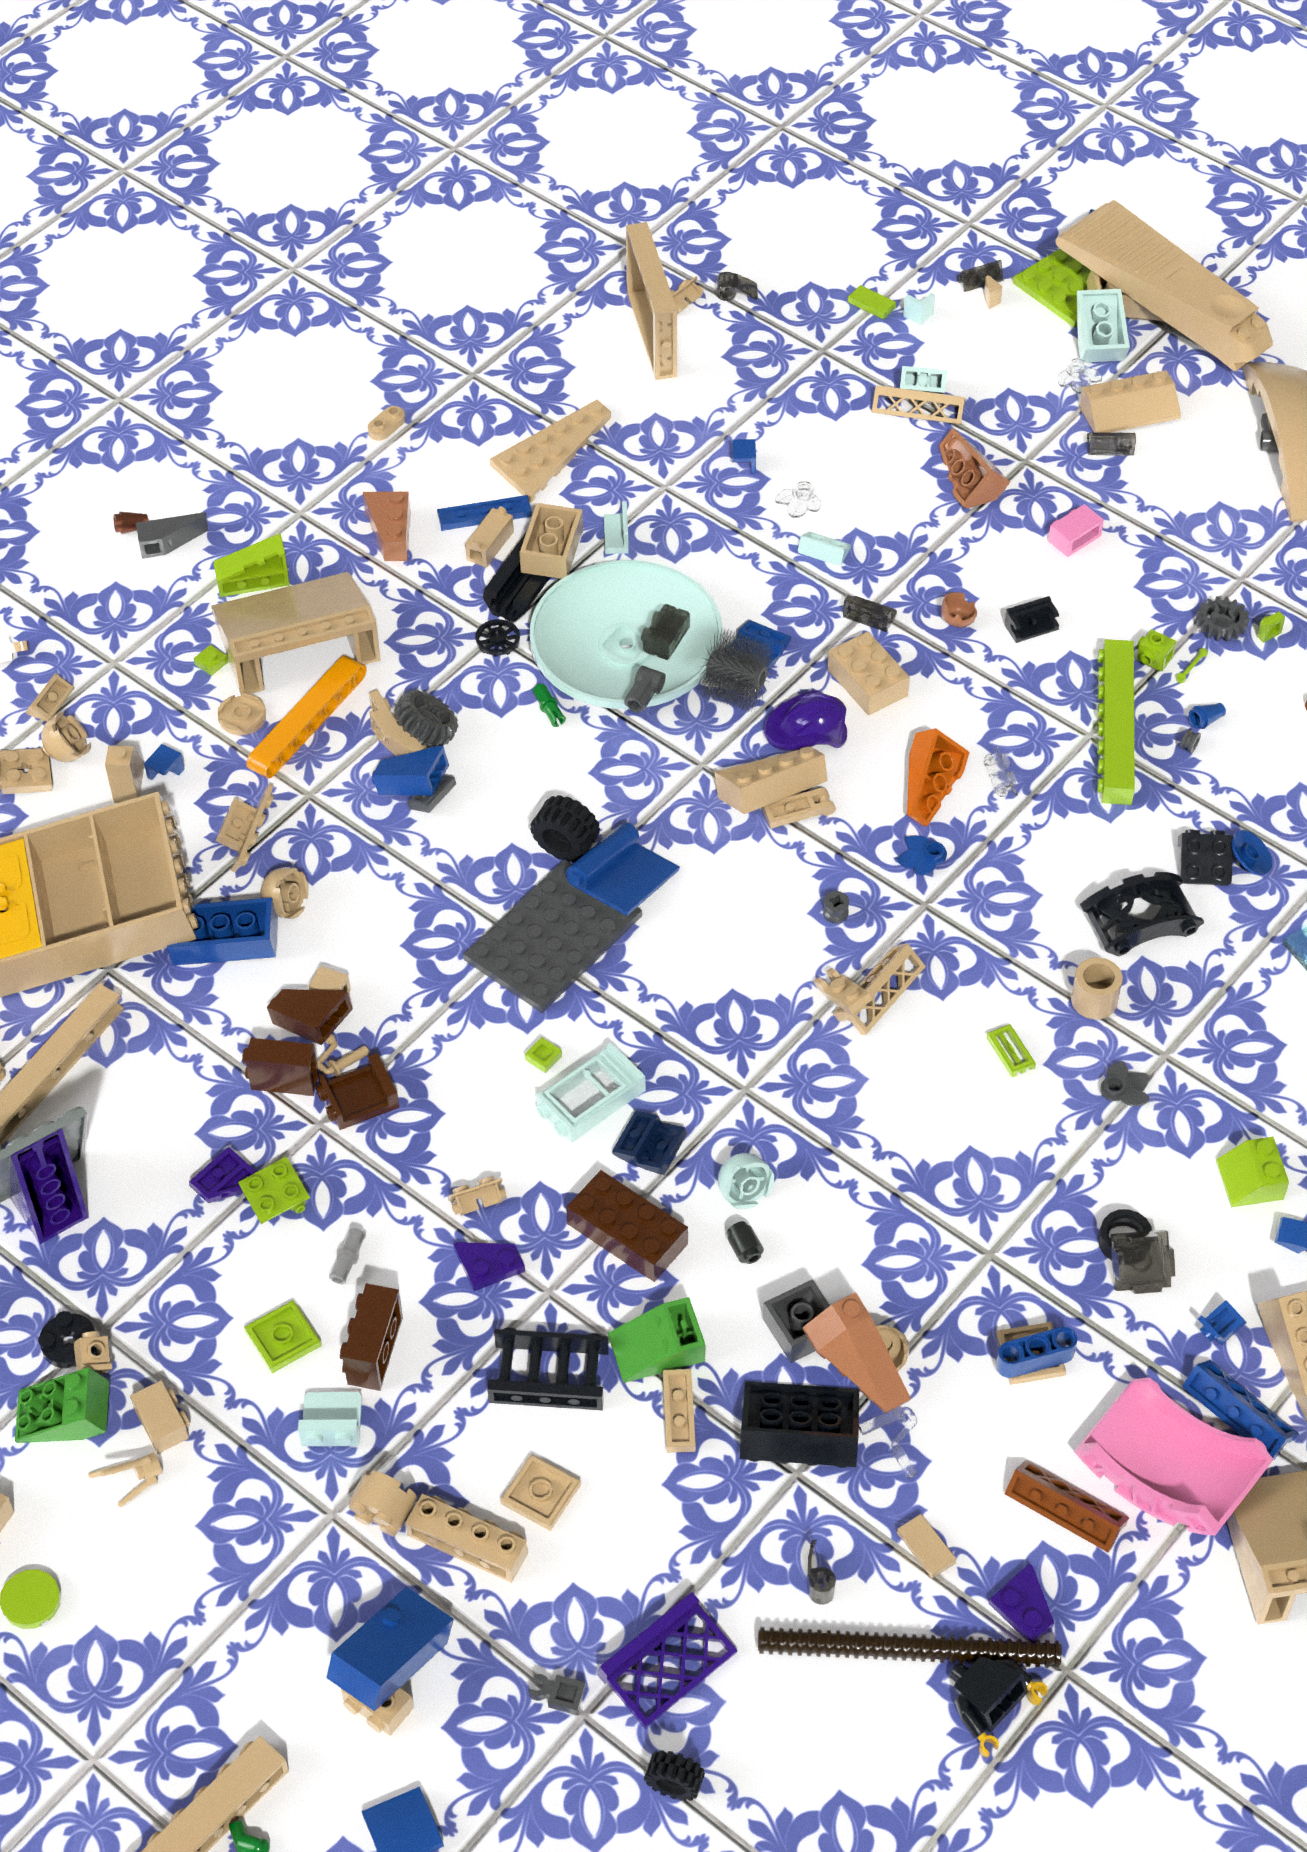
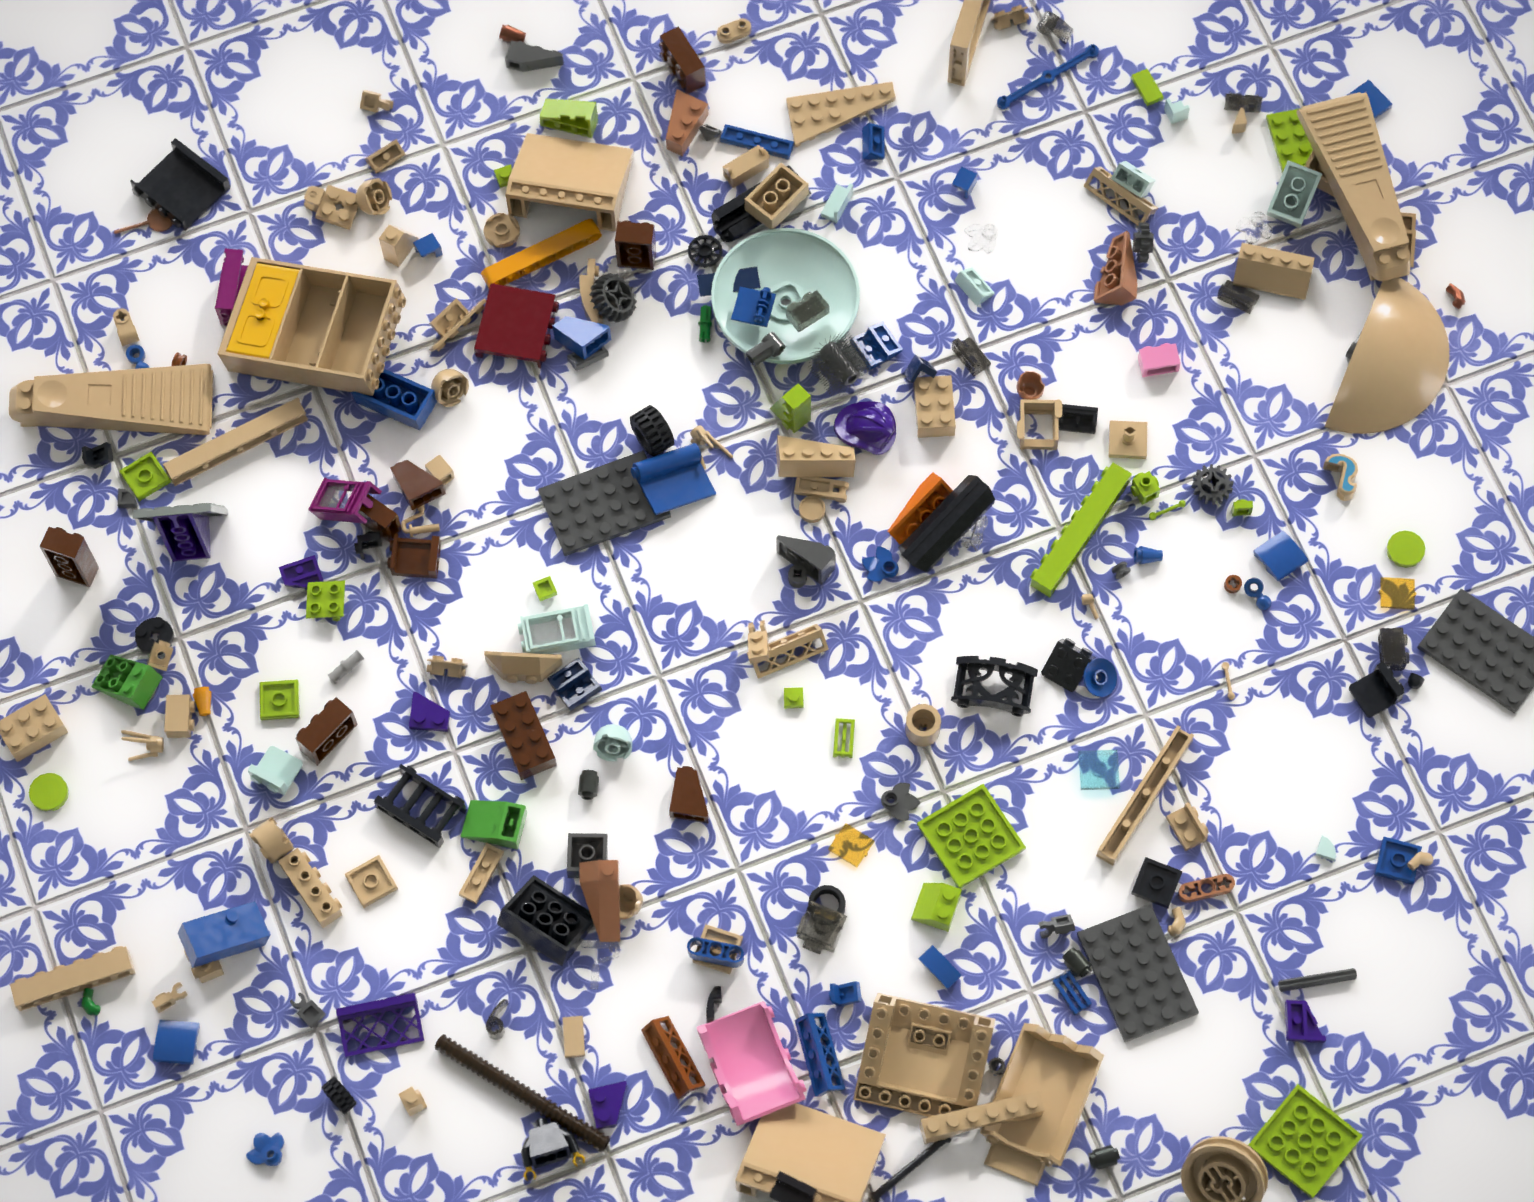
camera: 30 degrees right, 15 degrees up
(180, 1381) = (202, 698): none -> light orange cone
(231, 1065) = (342, 500): none -> magenta door
(287, 1102) = (366, 541): none -> black bracket
(324, 795) = (516, 324): none -> dark red panel
(349, 463) = (682, 60): none -> reddish brown brick
(355, 1781) = (166, 1000): none -> tan plate
(419, 653) = (635, 245): none -> reddish brown brick
(425, 524) = (709, 132): none -> dark grey slope
(565, 640) = (745, 278): none -> dark blue sticker
(571, 1148) = (523, 666): none -> tan wedge
(600, 653) = (753, 306): none -> blue hinge
(614, 462) = (873, 142): none -> blue slope
(620, 814) = (701, 437): none -> tan plant
(714, 735) = (793, 408): none -> lime wedge
(775, 1728) = (412, 1100): none -> tan brick
(789, 295) = (1003, 102): none -> blue piece
(802, 834) = (812, 509): none -> tan piece
(824, 640) = (916, 366): none -> dark blue panel
(838, 871) = (814, 556): none -> dark grey slope
(877, 1198) = (687, 797): none -> reddish brown slope
(922, 1035) = (793, 698): none -> lime plate
(971, 772) = (947, 523): none -> black piece
(979, 428) = (1143, 242): none -> dark grey gear
(997, 620) = (1046, 407): none -> tan piece
(1072, 1420) = (714, 997): none -> black slope
(1098, 618) = (1127, 439): none -> tan tile
(1103, 1160) = (851, 845): none -> clear yellow piece
(1178, 785) = (1087, 599): none -> tan hand
(1234, 1081) = (971, 836): none -> lime plate

